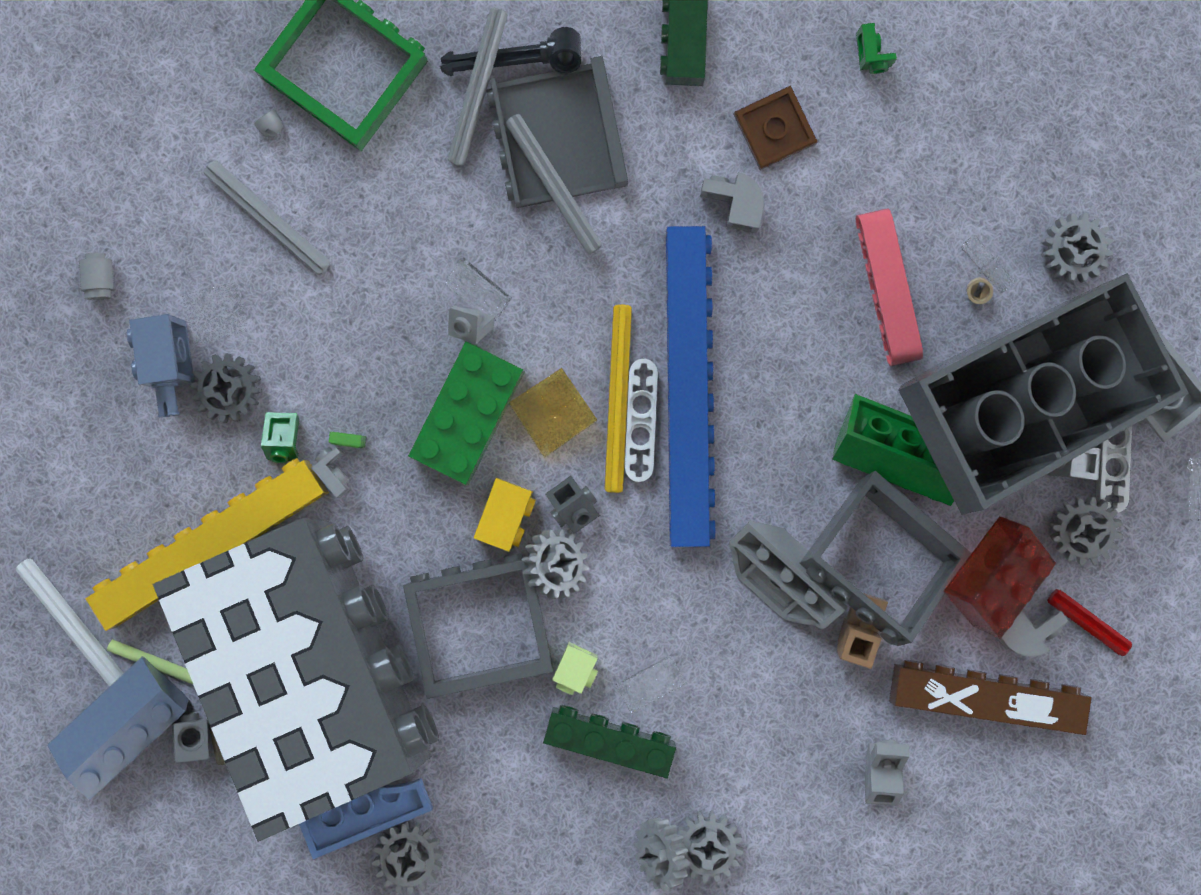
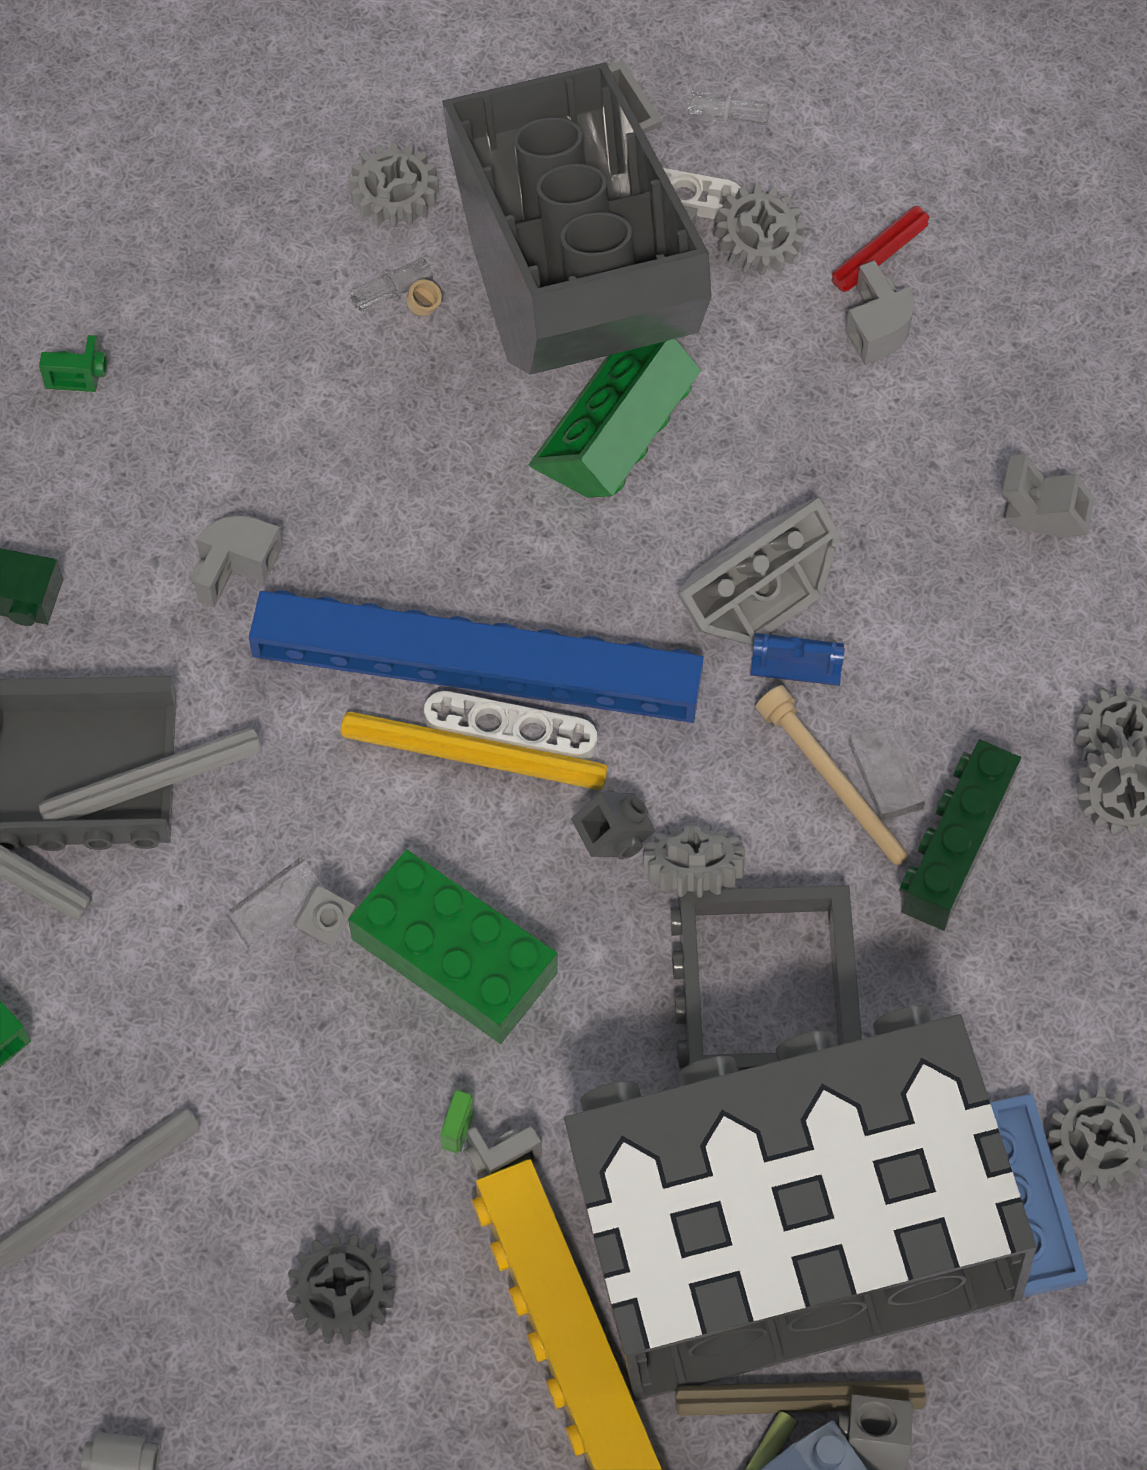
camera: 75 degrees left, 25 degrees down
(161, 358) = (275, 1365): sand blue brick -> none
(280, 436) = (433, 1220): bracket -> none
(504, 515) = (610, 922): yellow brick -> none
(552, 412) = (477, 834): clear yellow plate -> none
(575, 669) = (850, 861): yellowish green brick -> none
(685, 604) = (779, 708): none -> tan piece
(729, 610) = (797, 659): none -> blue hinge
(775, 127) = (145, 500): reddish brown tile -> none
(858, 640) = (853, 502): medium nougat brick -> none
(890, 285) = (394, 396): coral beam -> none
(915, 523) = (727, 407): dark grey window -> none
(990, 698) = (963, 371): reddish brown brick -> none
(1000, 577) = (804, 321): clear red brick -> none

